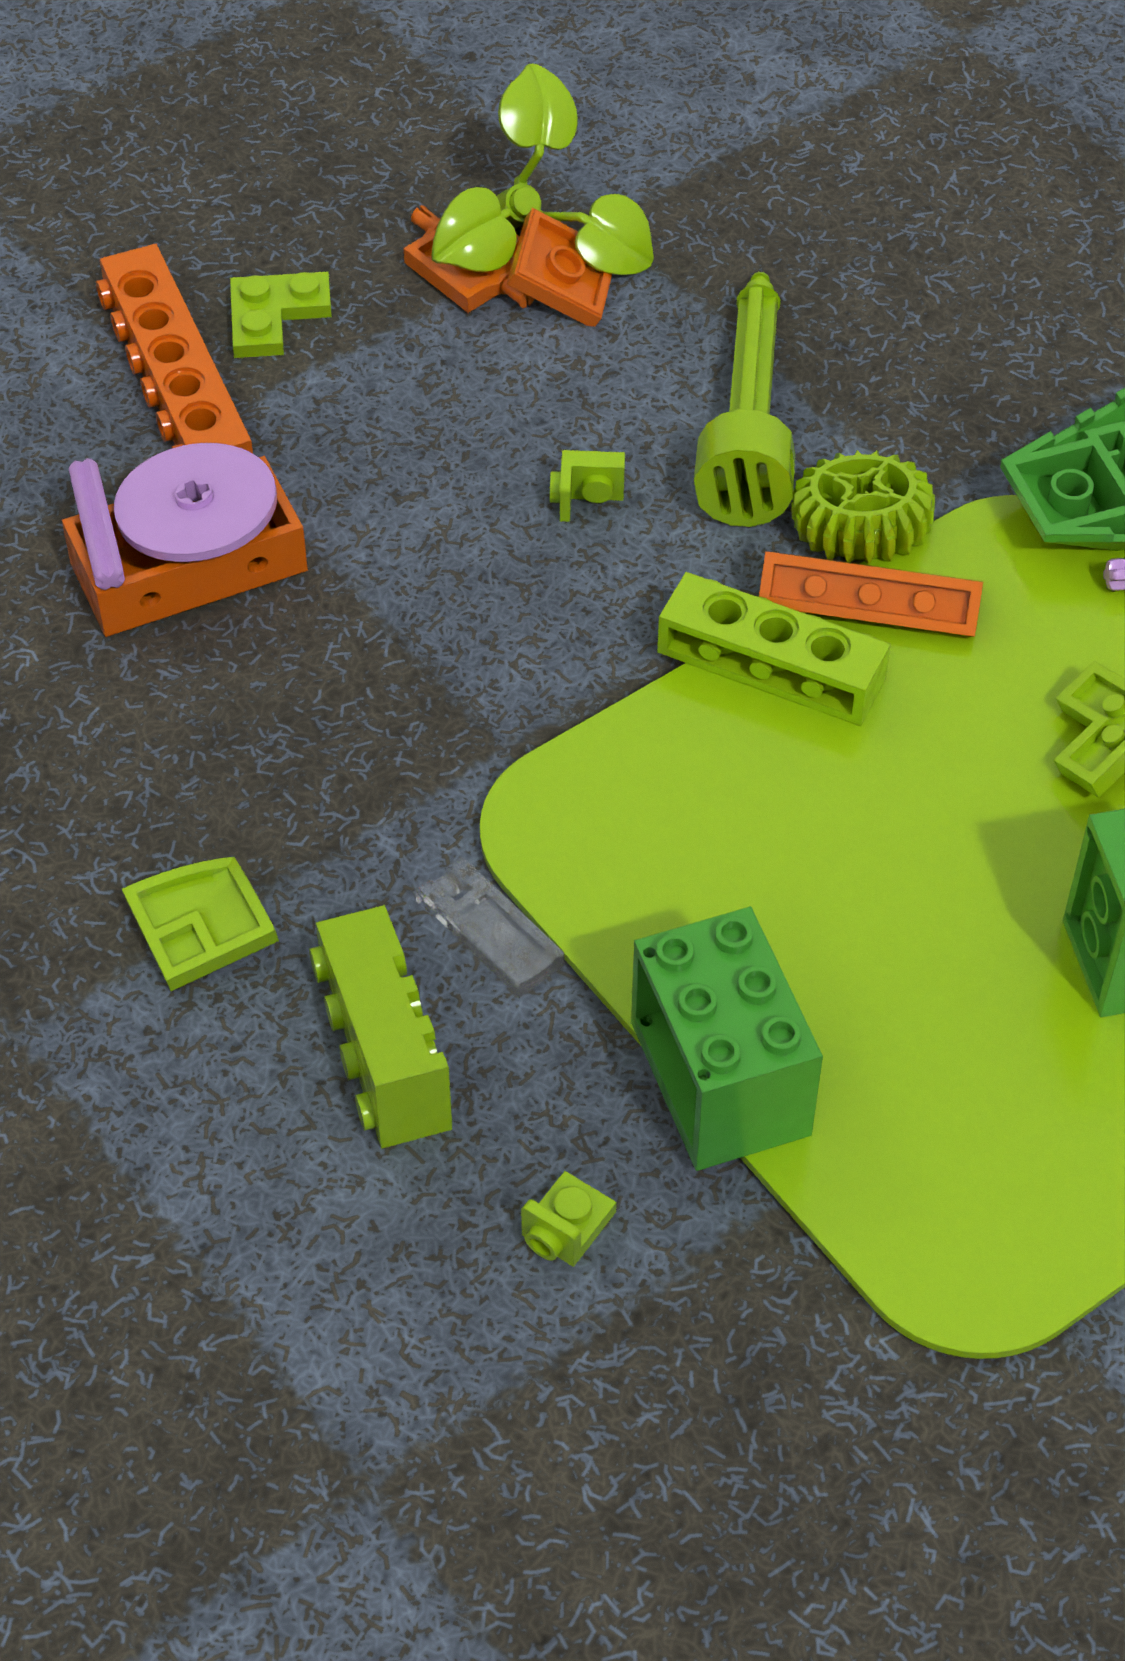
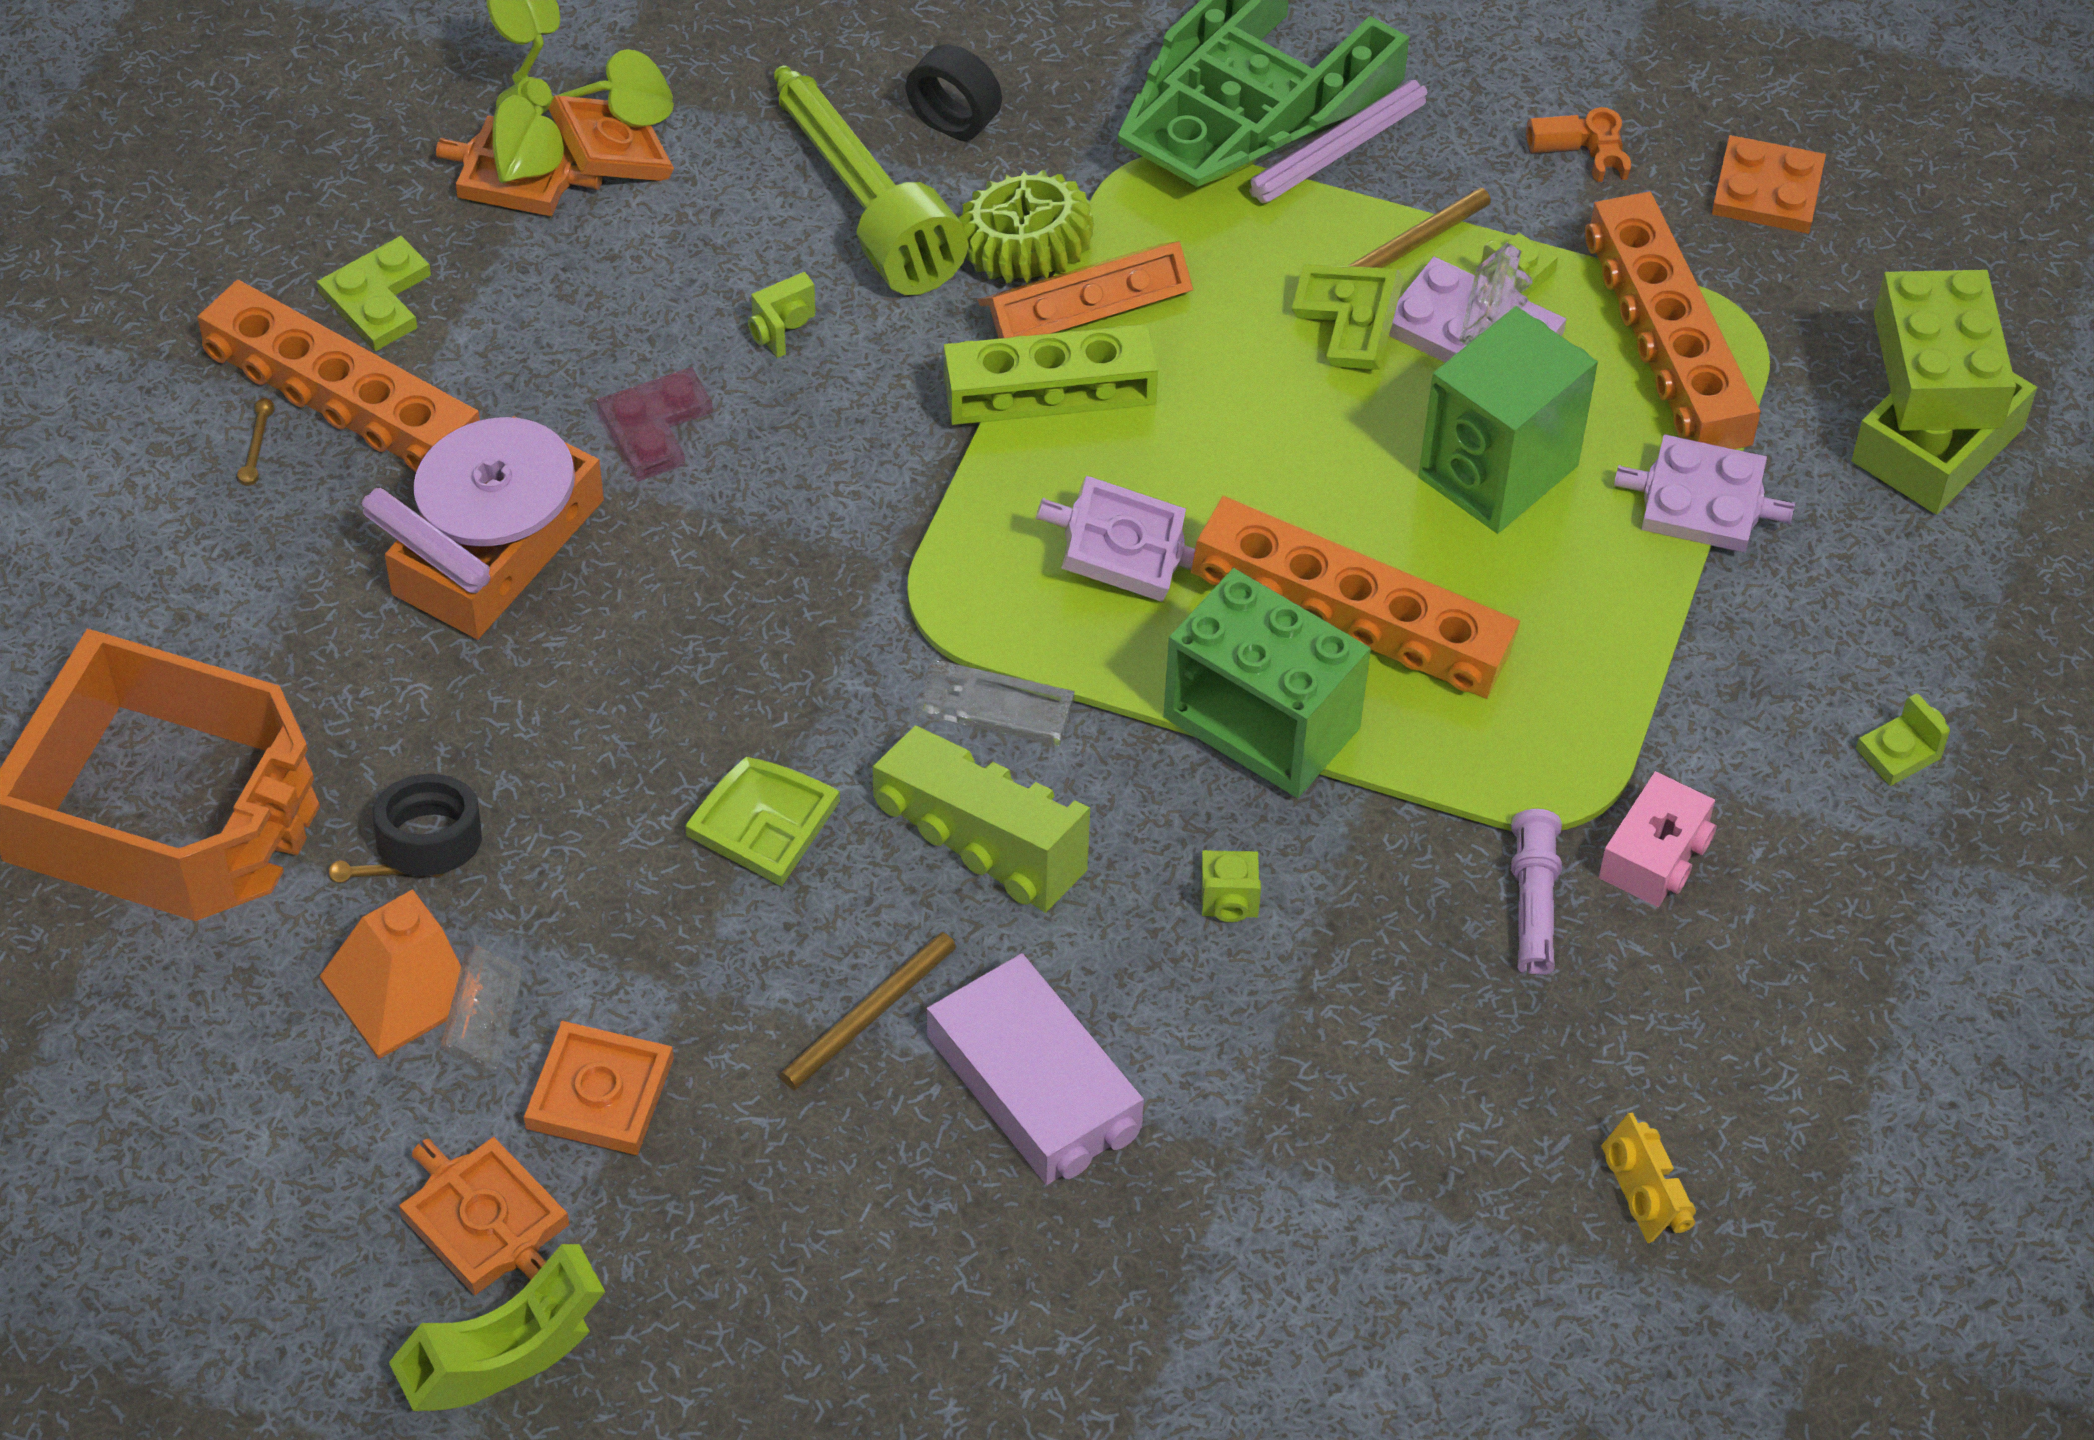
camera: 35 degrees left, 0 degrees up
(49, 409) = (249, 474): none -> pearl gold hinge
(146, 1149) = (867, 1011): none -> pearl gold bar
(234, 1295) = (1035, 1069): none -> lavender brick
(400, 513) = (643, 418): none -> clear pink plate
(716, 832) = (1121, 537): none -> lavender plate
(875, 1377) = (1536, 870): none -> lavender pin
(887, 971) = (1361, 596): none -> orange brick
(889, 358) = (969, 76): none -> black tyre
(1040, 1391) = (1657, 840): none -> bright pink brick

